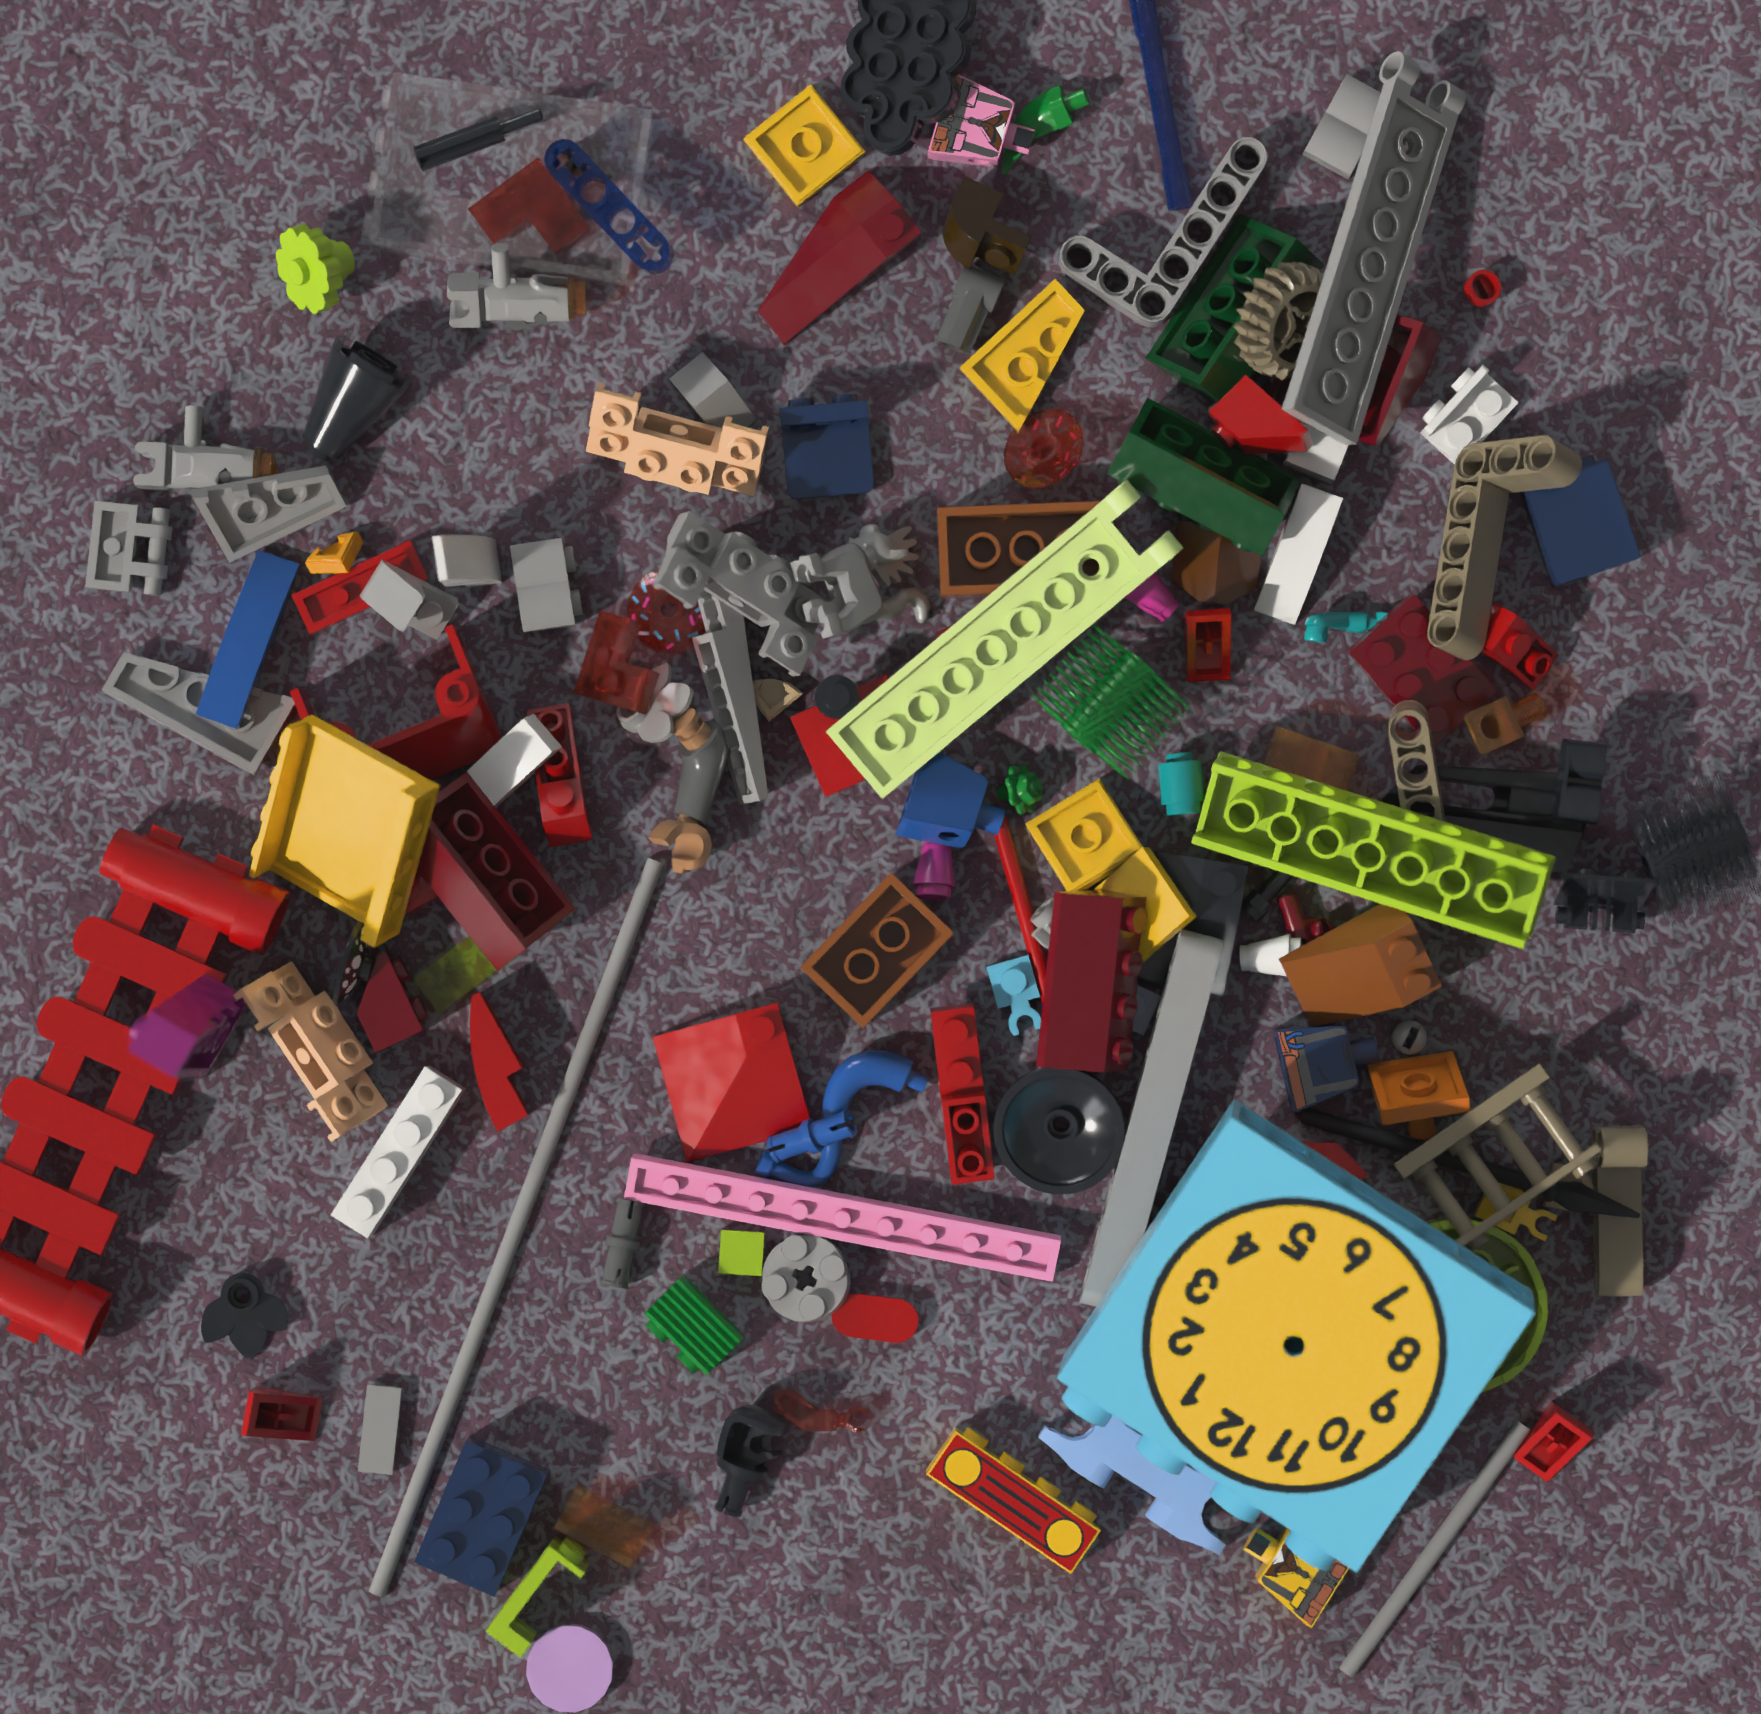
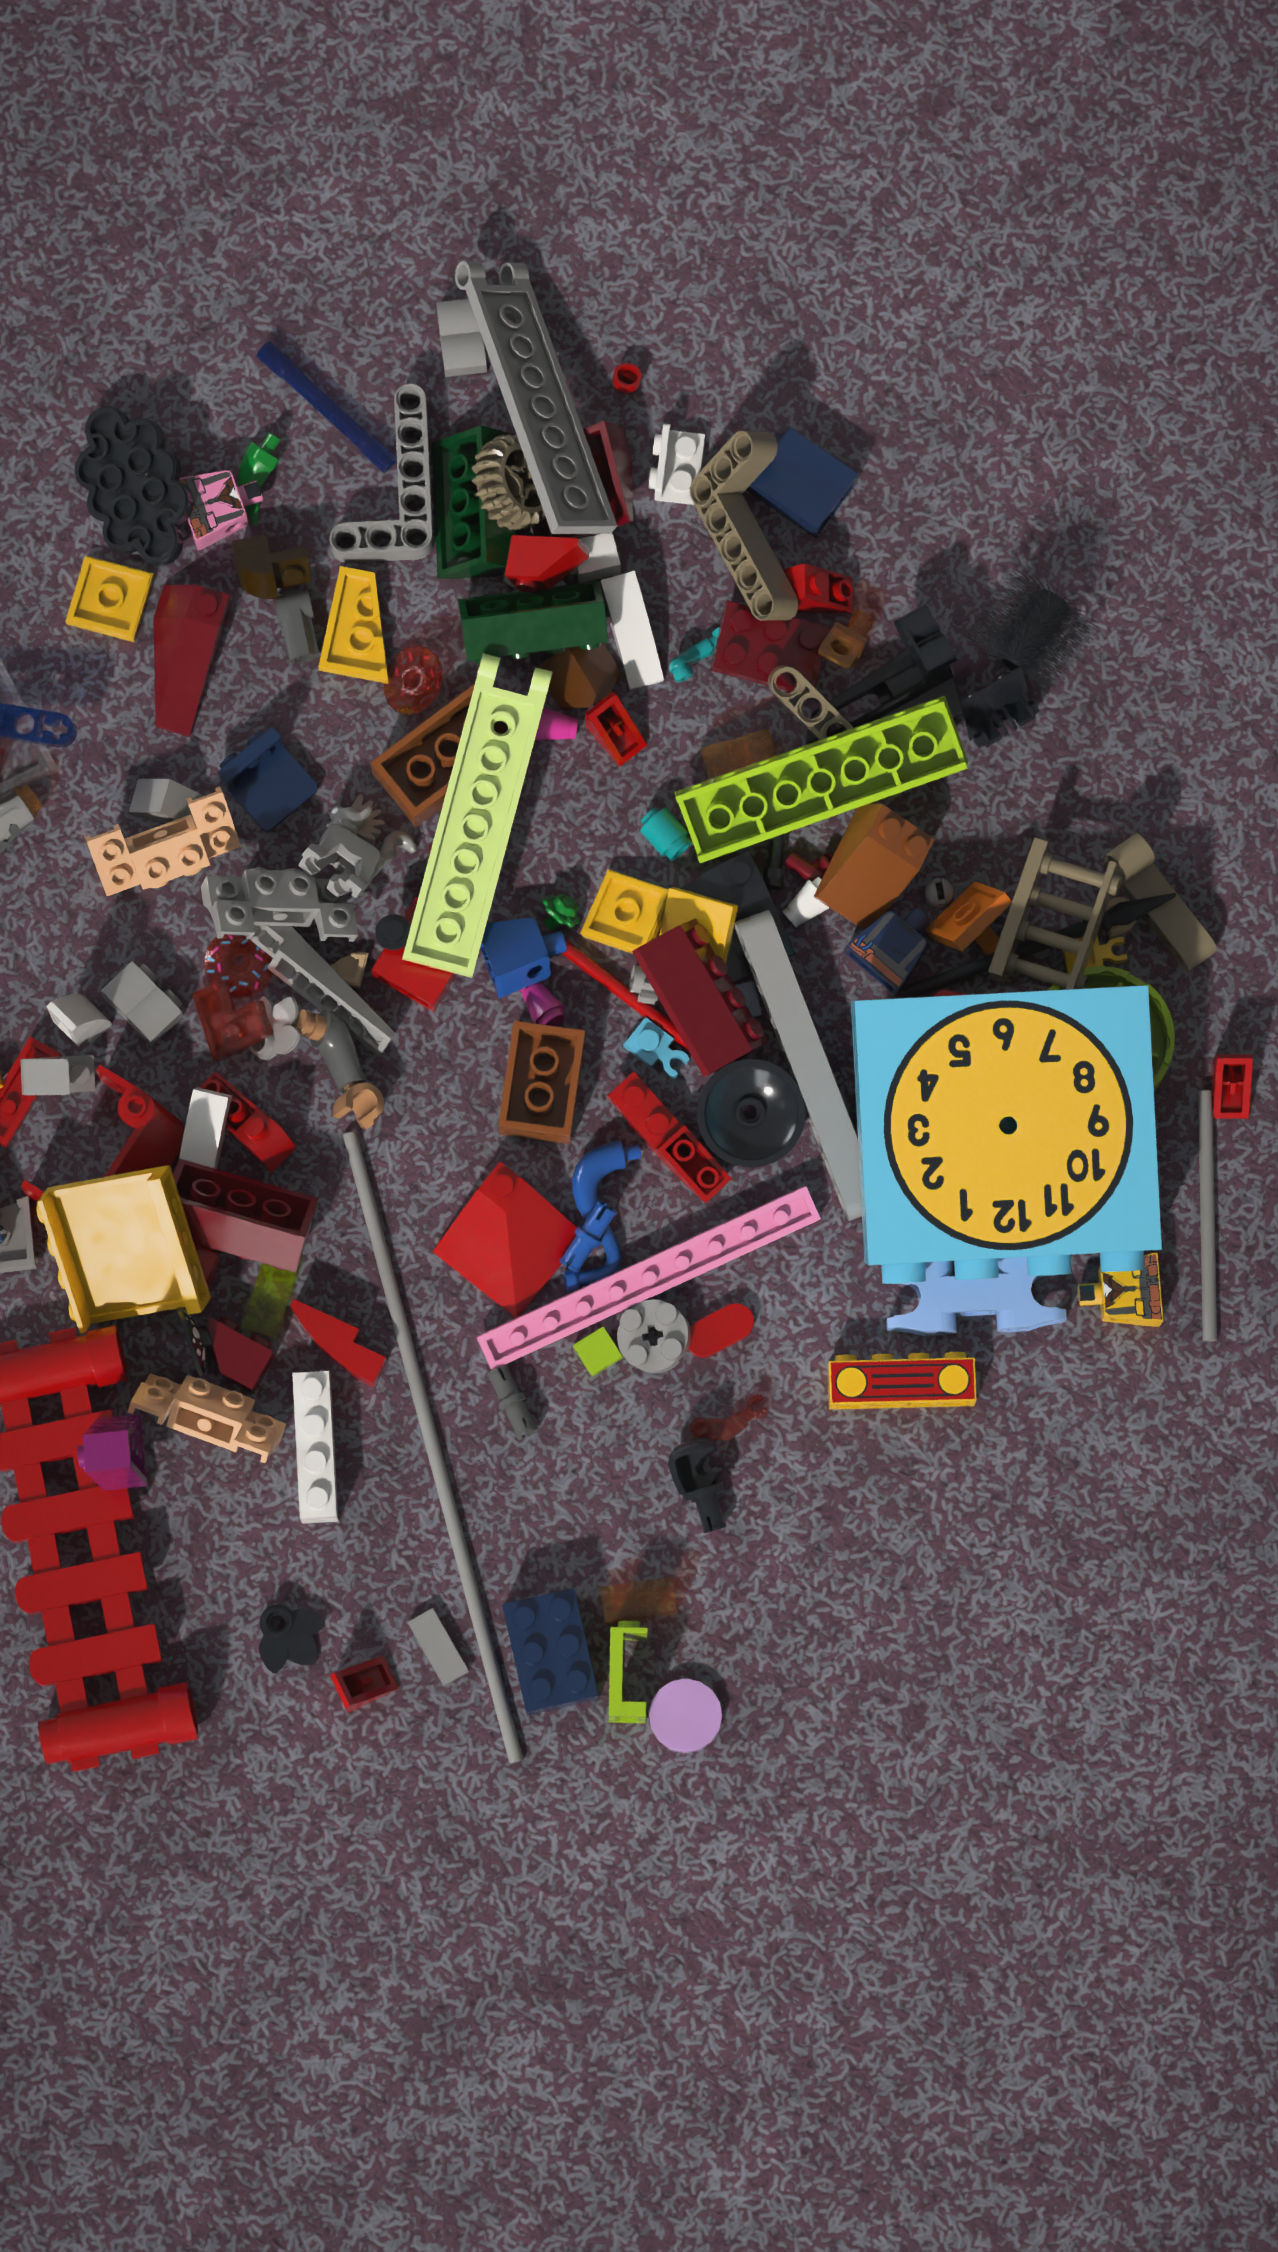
camera: 40 degrees left, 10 degrees down
(692, 1325) = (600, 1422): green brick -> none
(1111, 701) = (578, 806): green piece -> none

